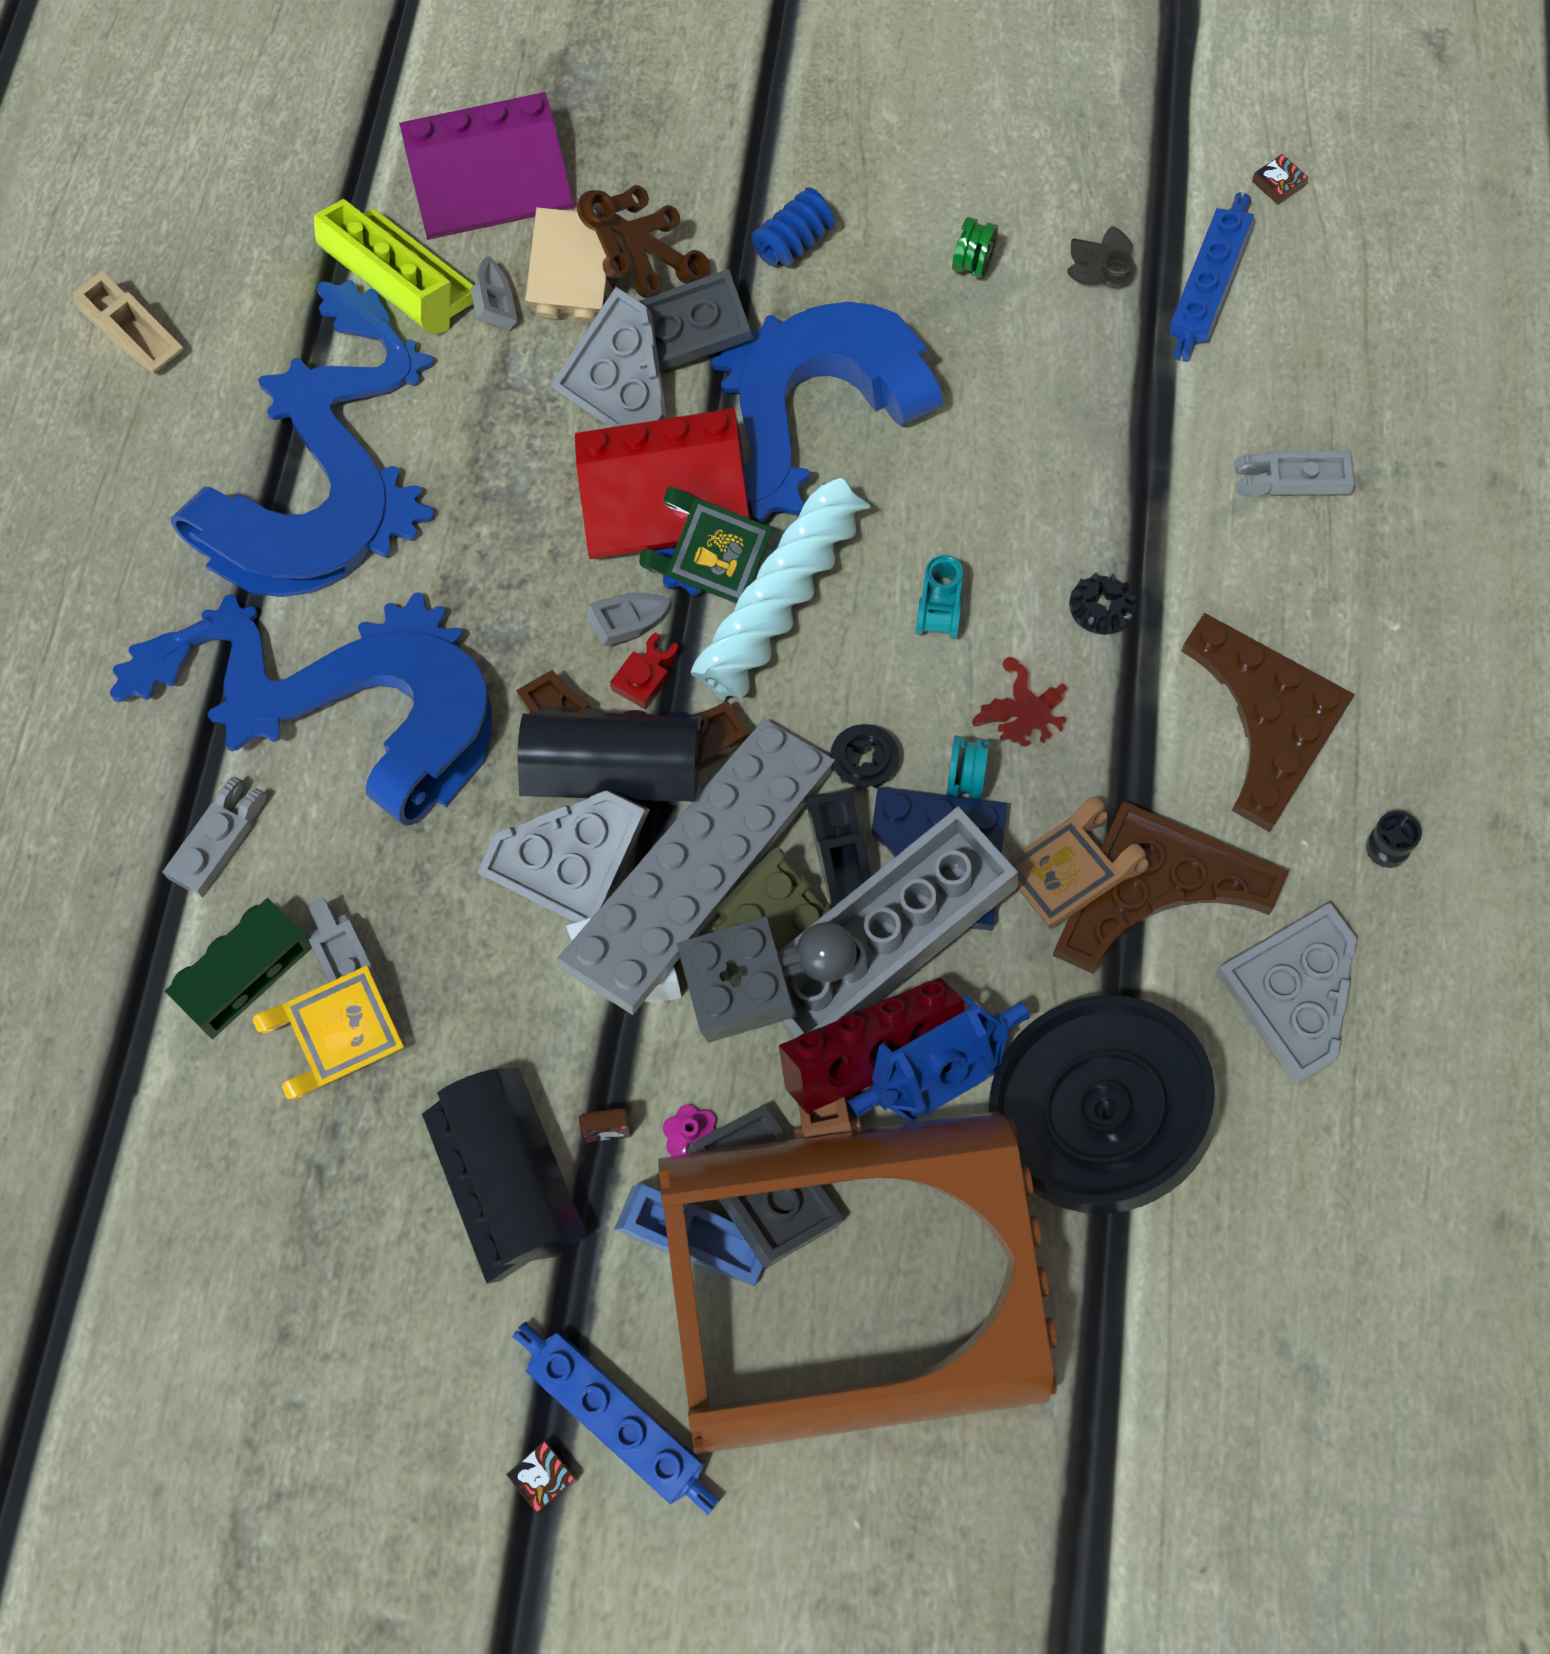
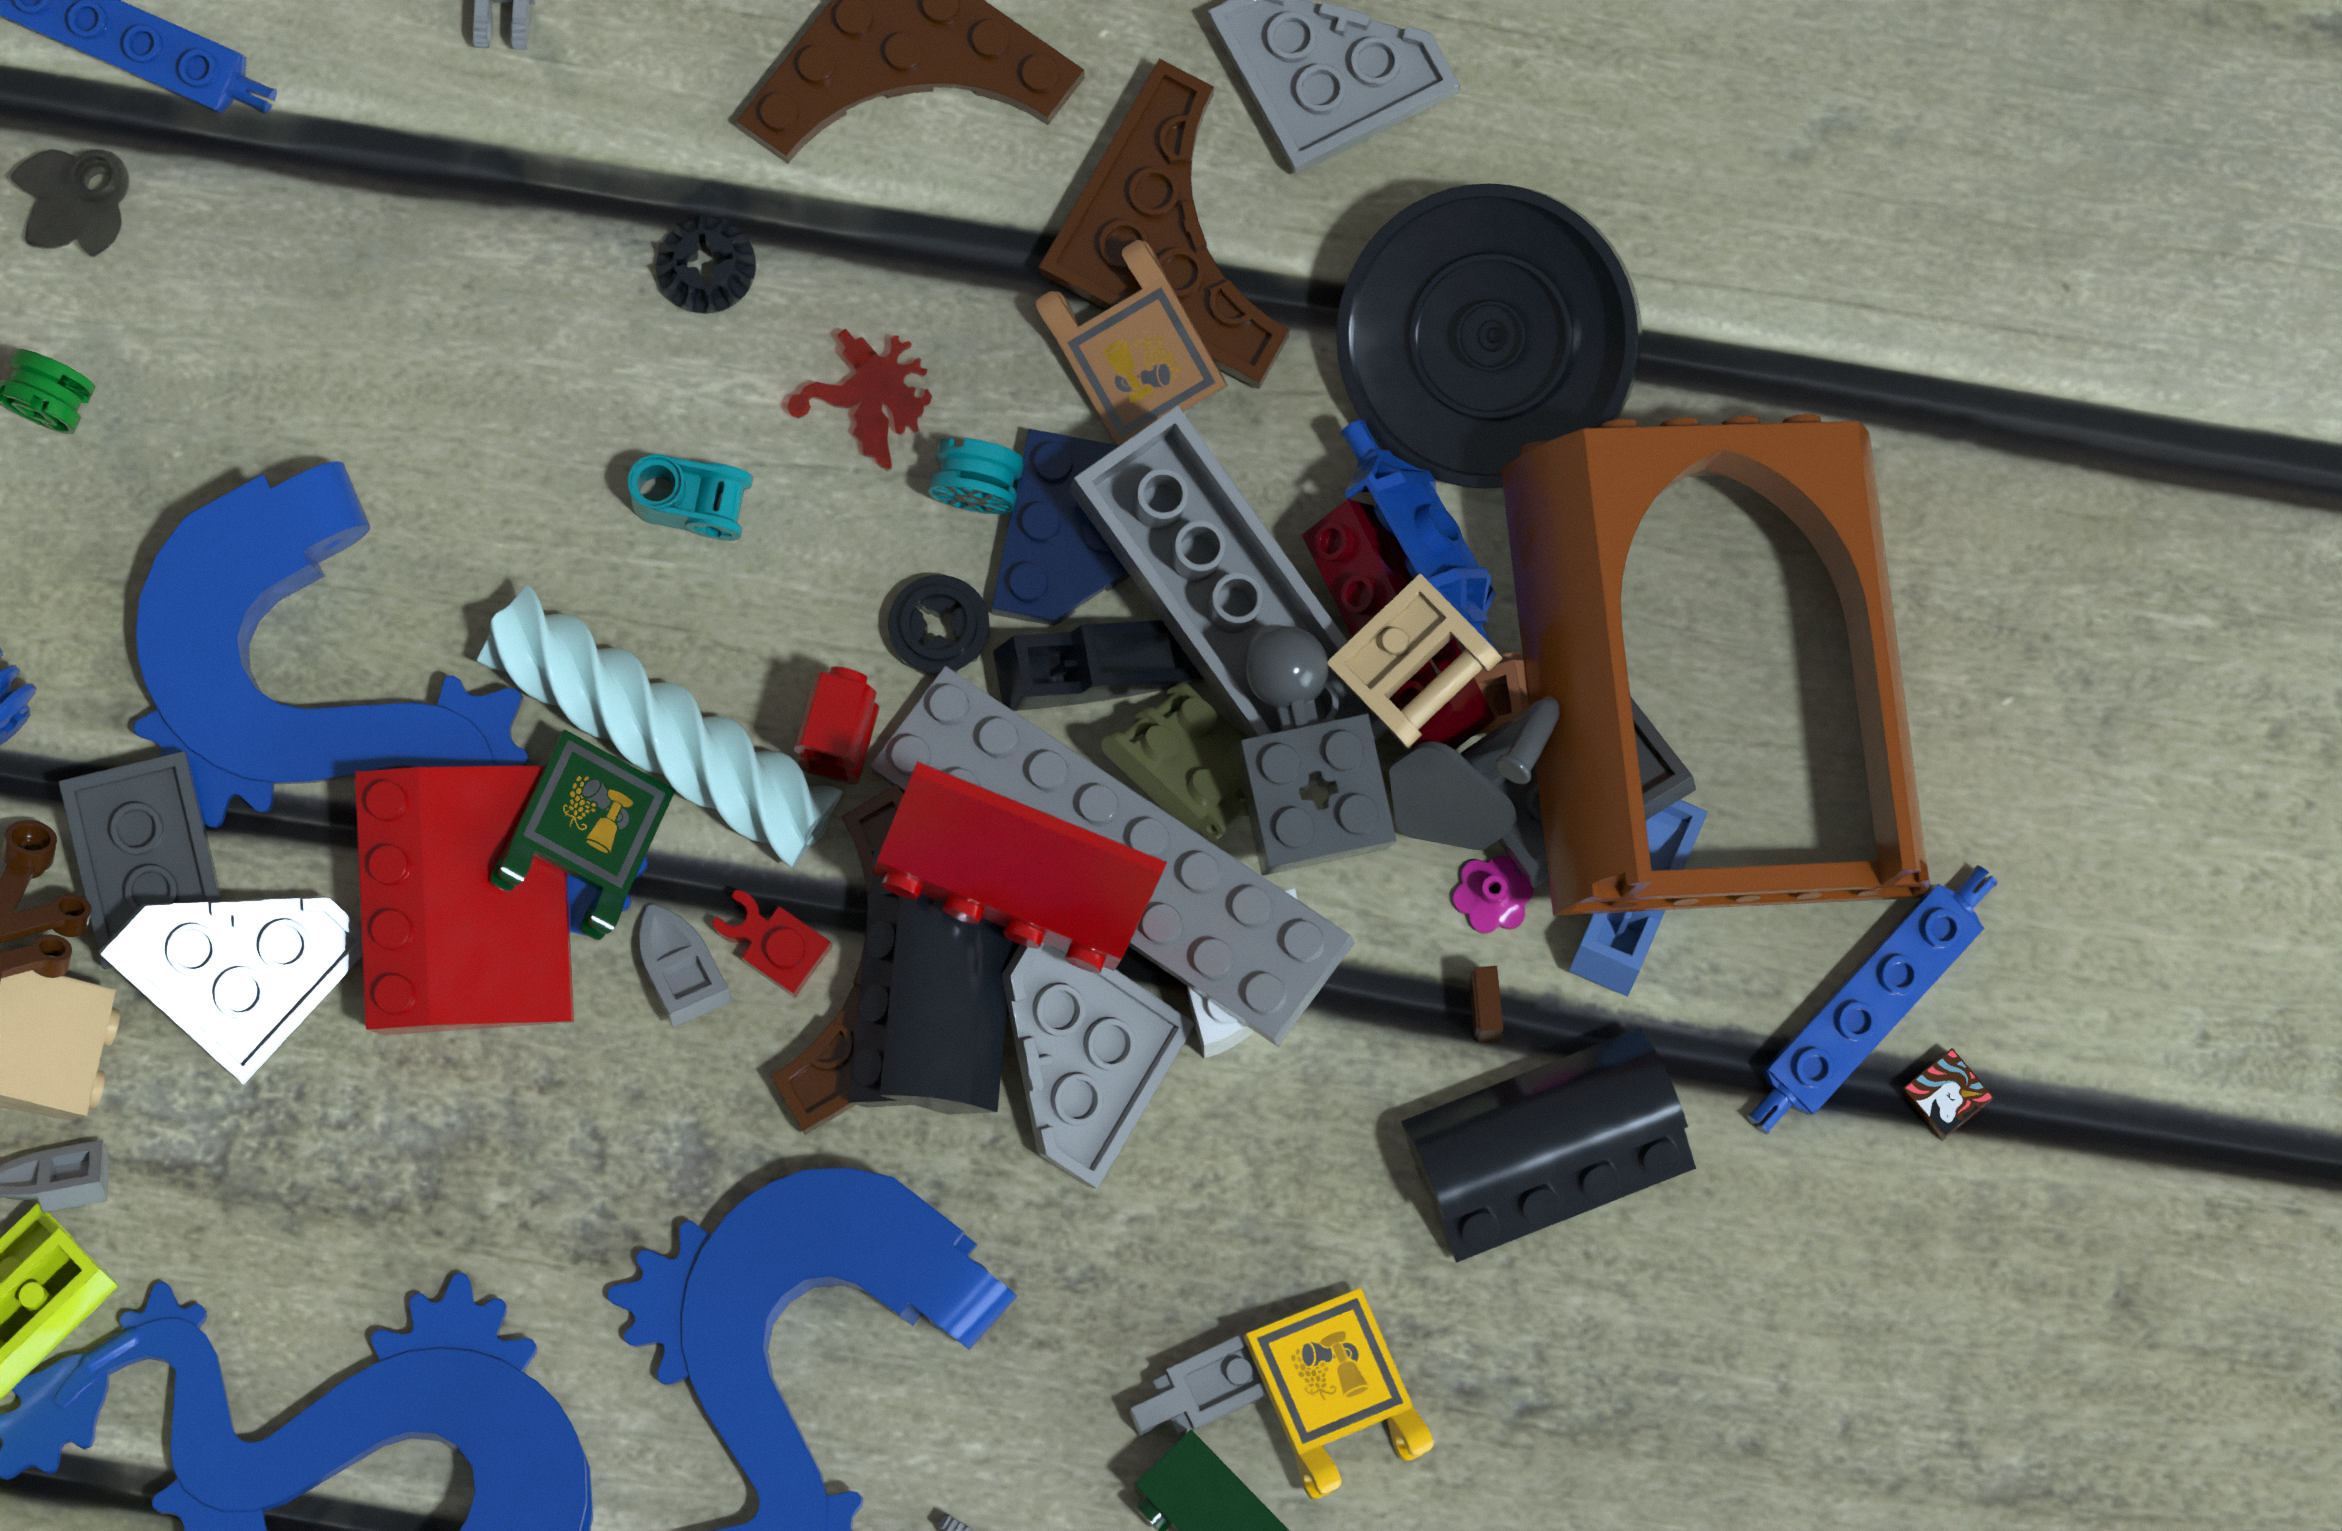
camera: 90 degrees left, 10 degrees up
(664, 768) = (1016, 869): none -> red slope
(754, 1094) = (1446, 793): none -> dark grey piece
(784, 687) = (837, 725): none -> red brick
(846, 1026) = (1399, 645): none -> tan plate

